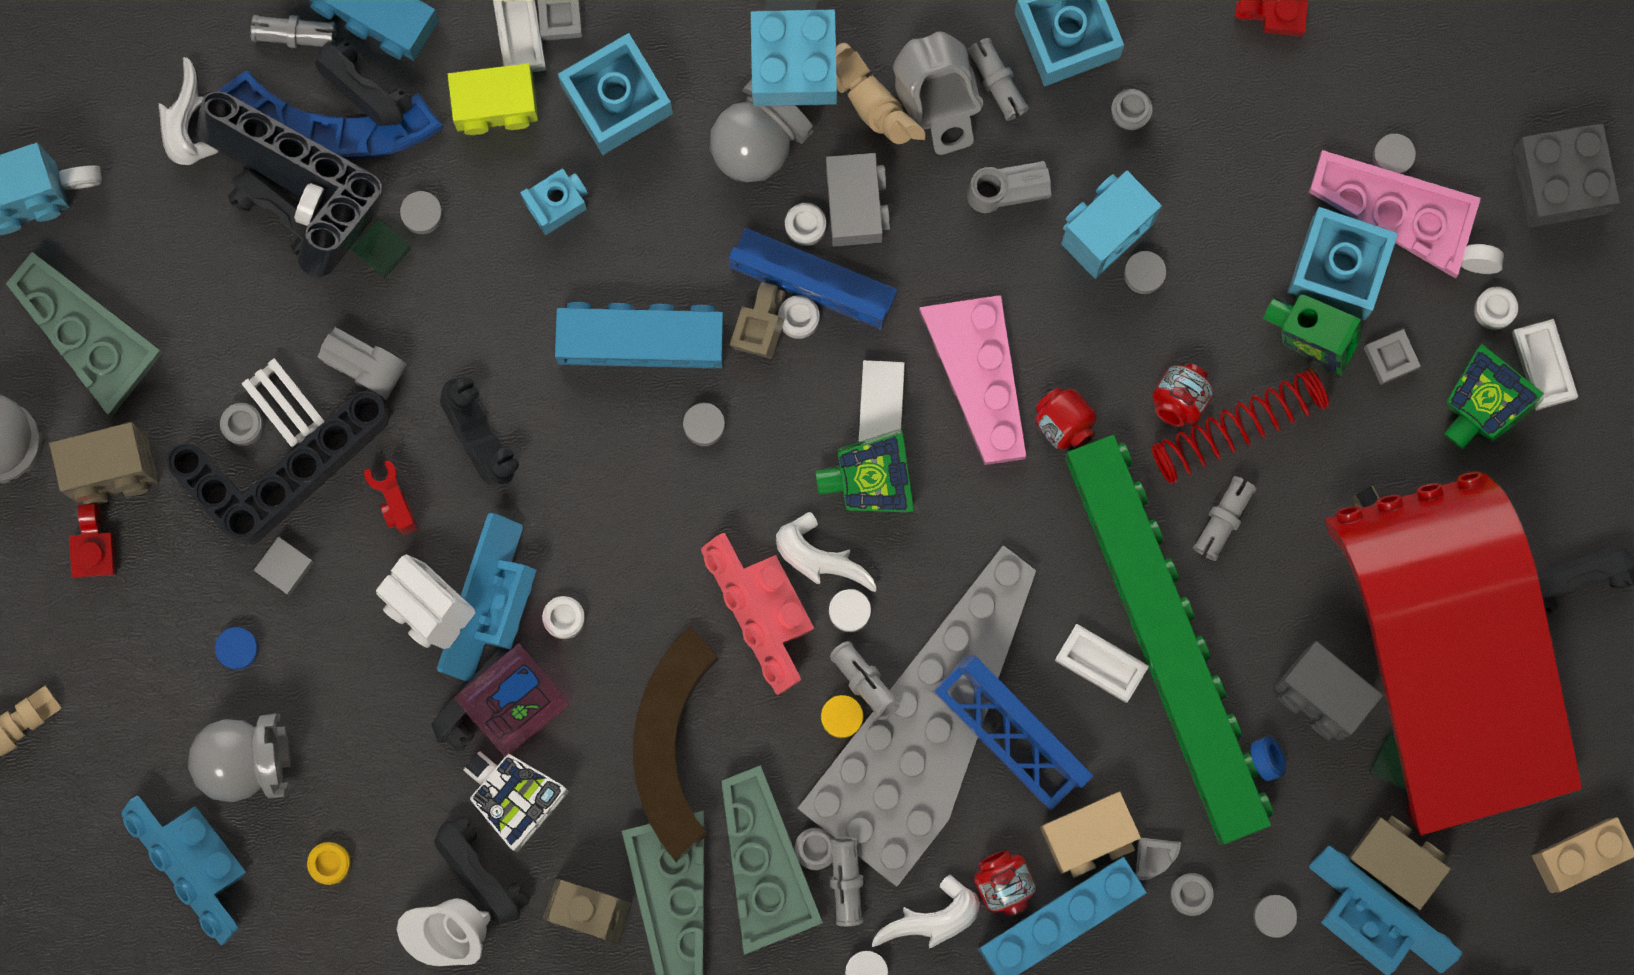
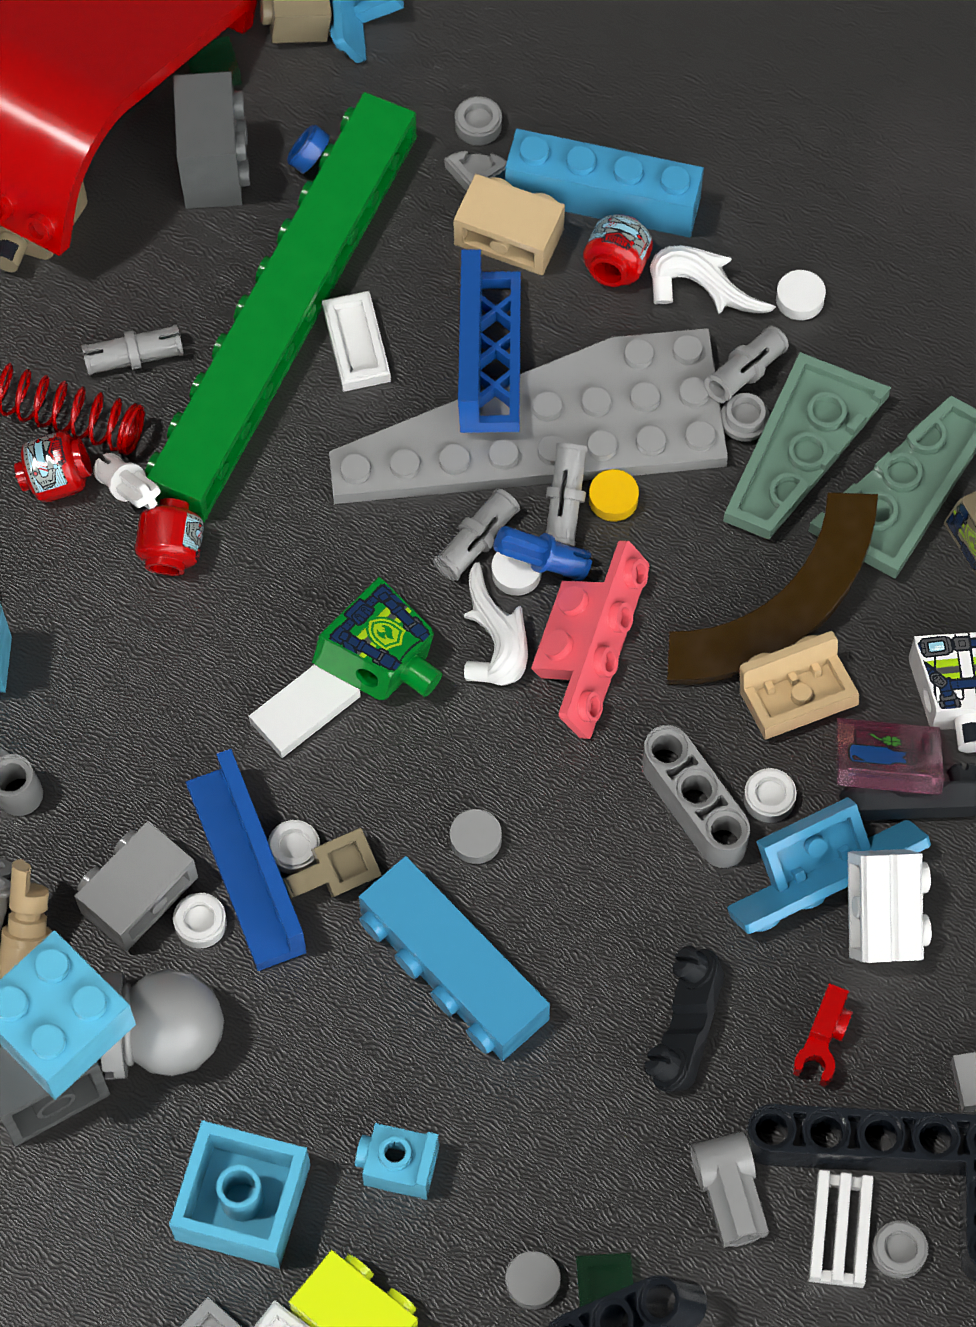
camera: 135 degrees left, 15 degrees down
(584, 555) = (694, 773): none -> light grey beam
(608, 695) = (796, 685): none -> tan bracket
(838, 626) = (543, 553): none -> blue axle
(894, 607) = (476, 534): none -> light grey pin
(977, 360) = (185, 661): bright pink wing -> none
(1124, 424) = (126, 481): none -> white axle
(1275, 916) = (431, 51): light grey tile -> none

